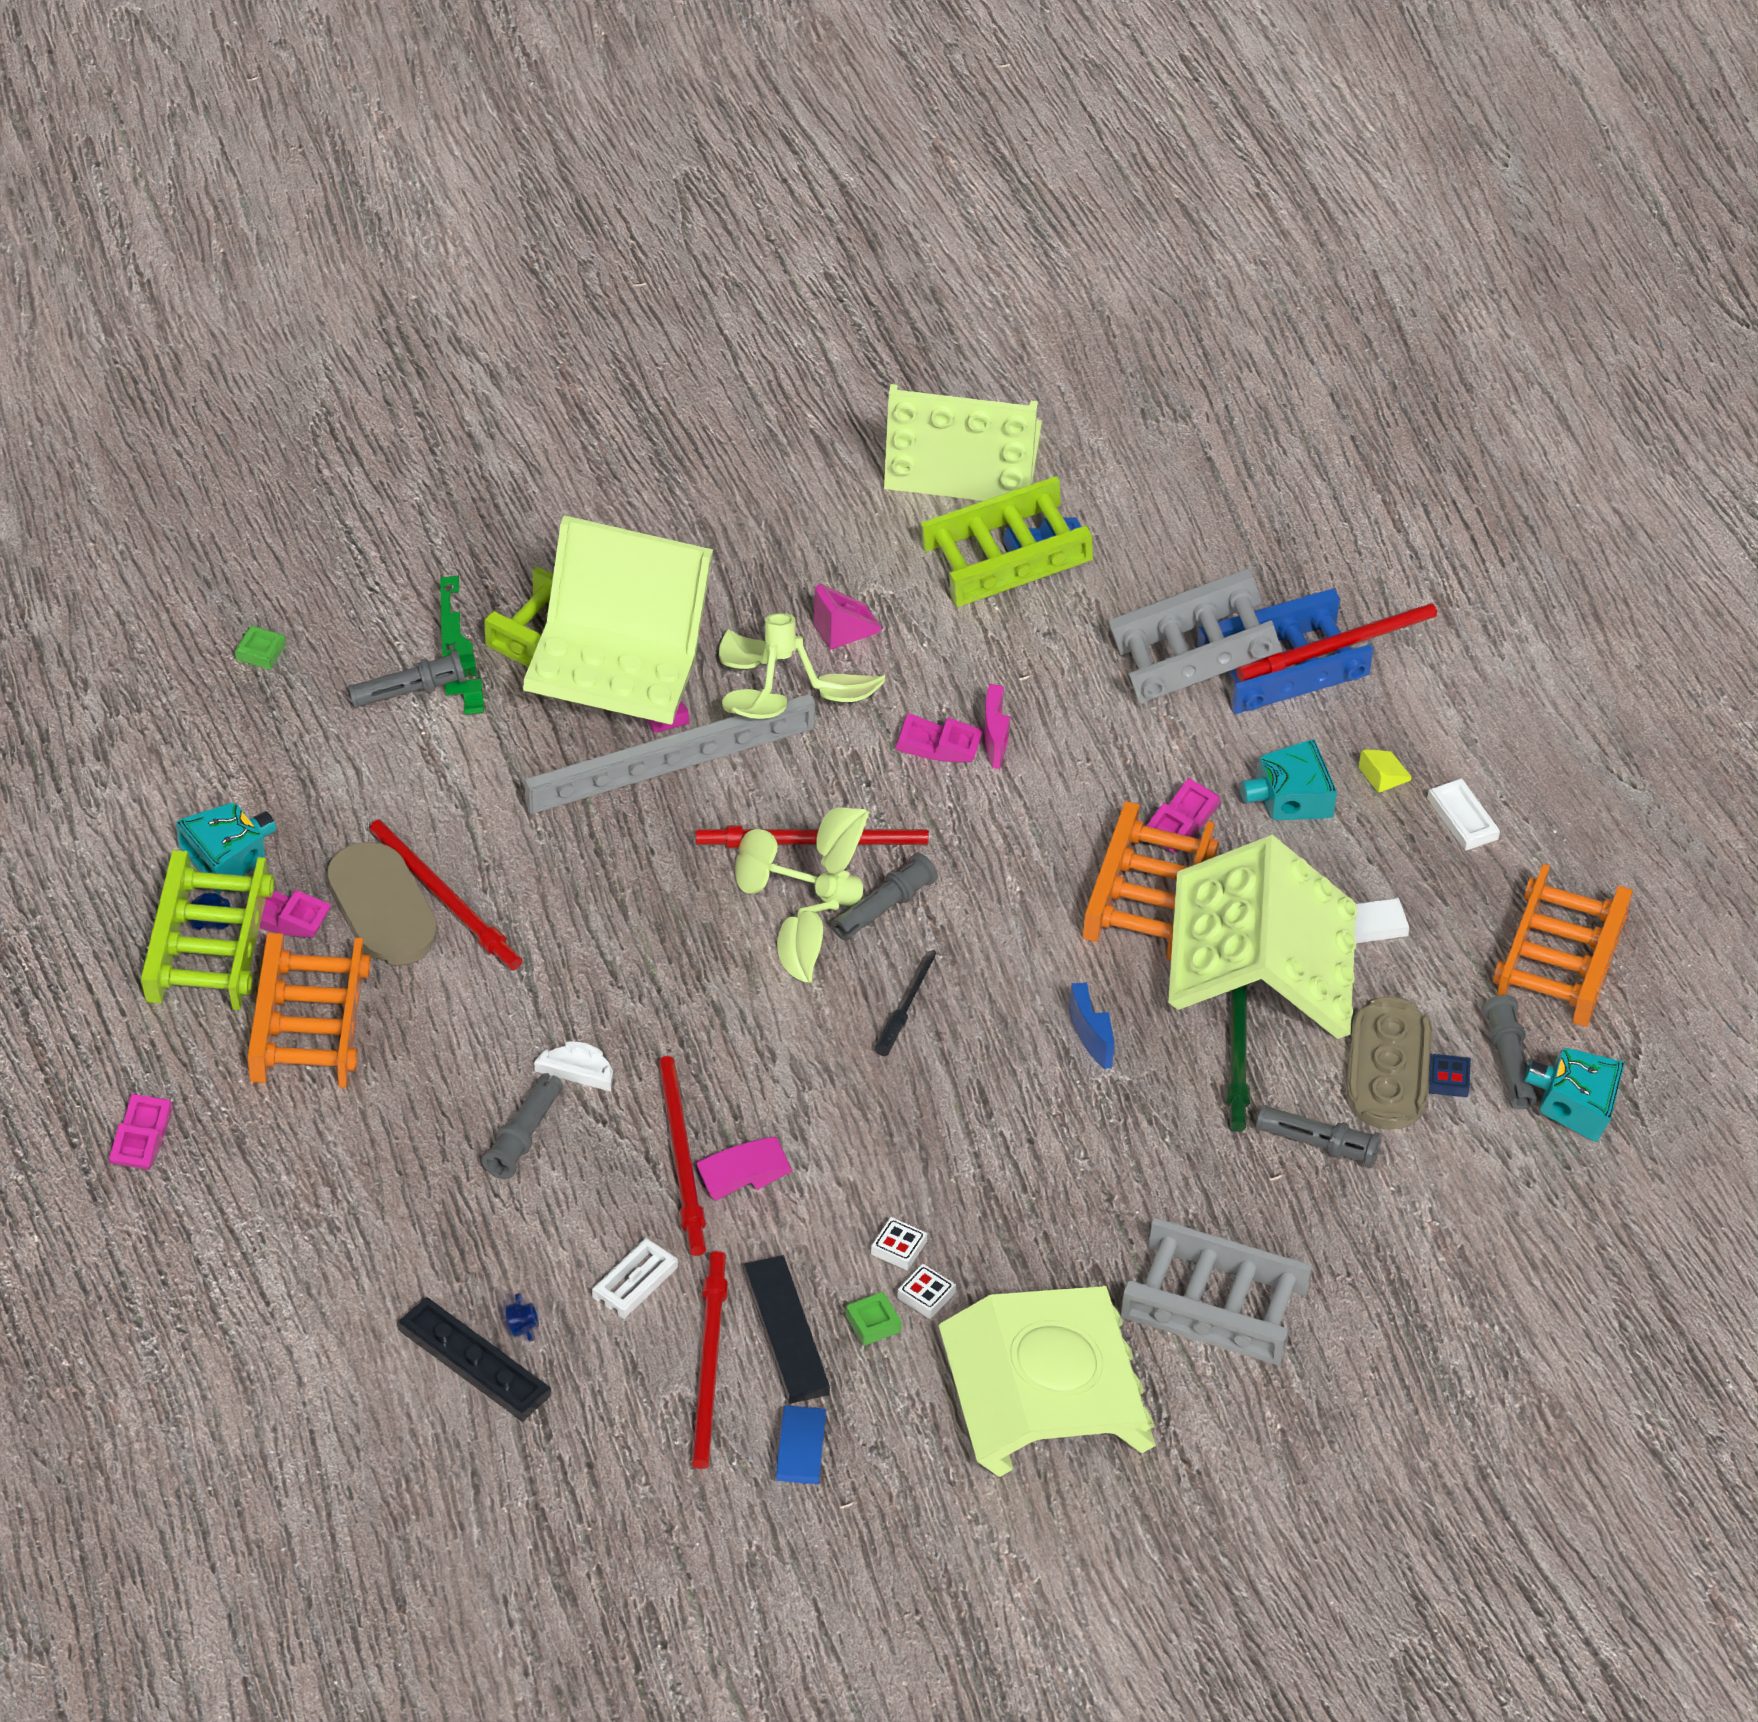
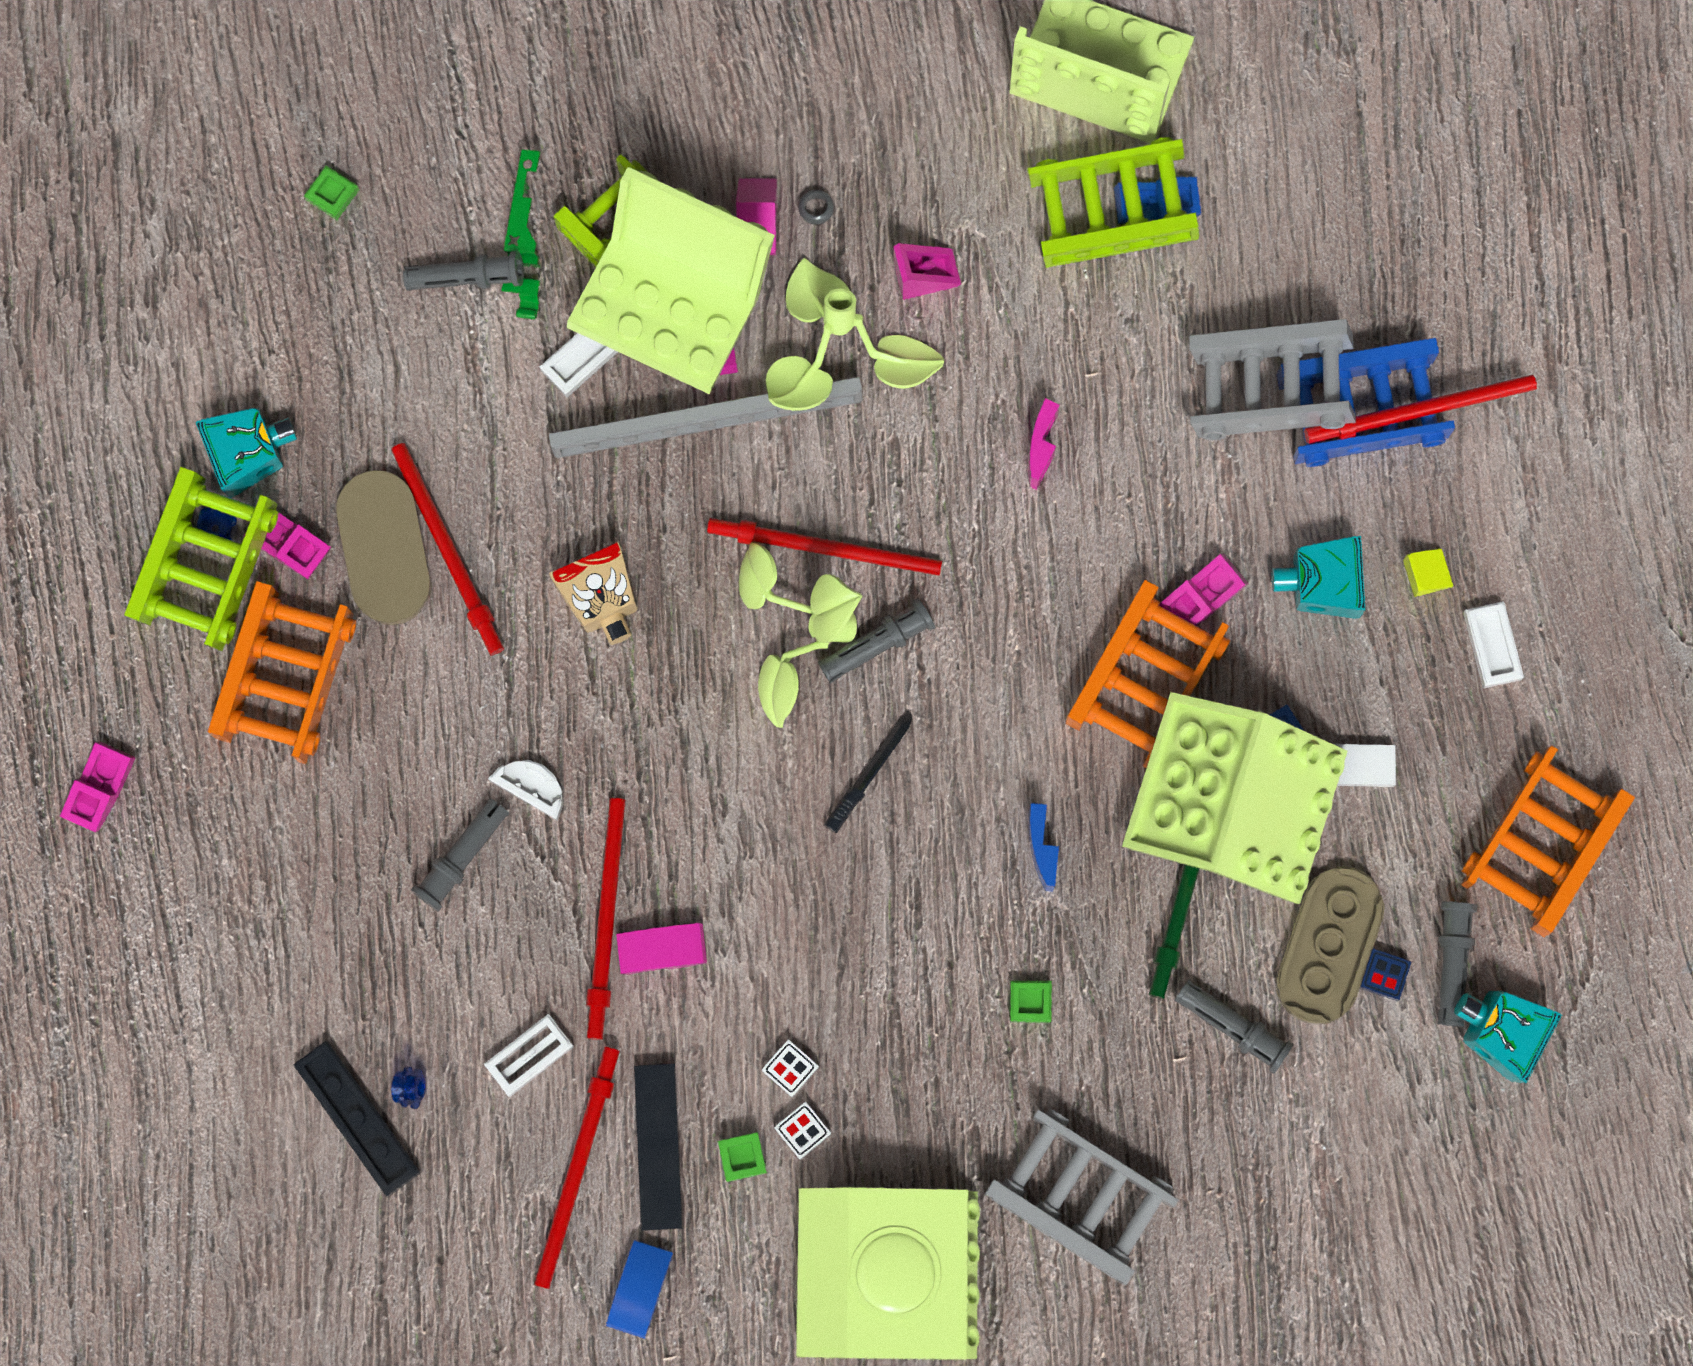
camera: 20 degrees right, 30 degrees up
(536, 732) = (576, 363): none -> white tile
(602, 899) = (599, 592): none -> torso
(728, 583) = (816, 194): none -> dark grey piece
(947, 743) = (981, 445): dark pink slope -> none
(1118, 1153) = (1030, 1001): none -> bright green tile

